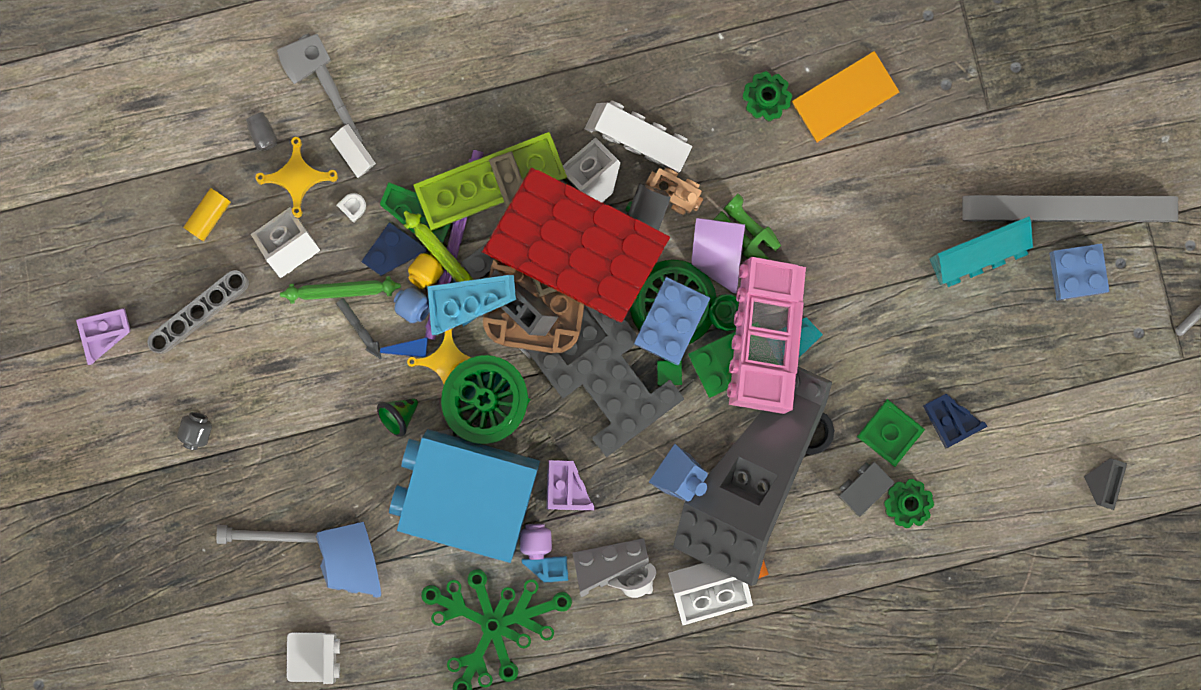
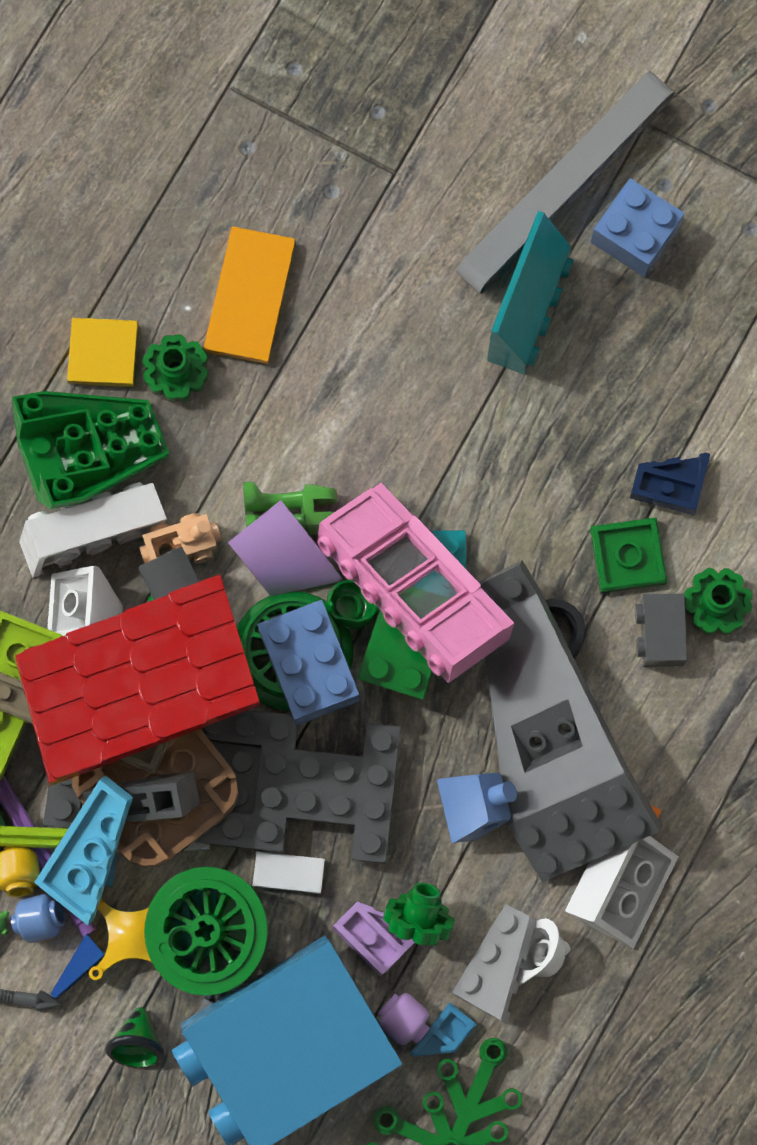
camera: 45 degrees left, 10 degrees down
(555, 411) = (288, 872): none -> white tile
(594, 501) = (419, 916): none -> green plant
(669, 371) = (356, 716): green tile -> none
(679, 89) = (84, 443): none -> green wedge
(739, 48) = (102, 352): none -> yellow tile

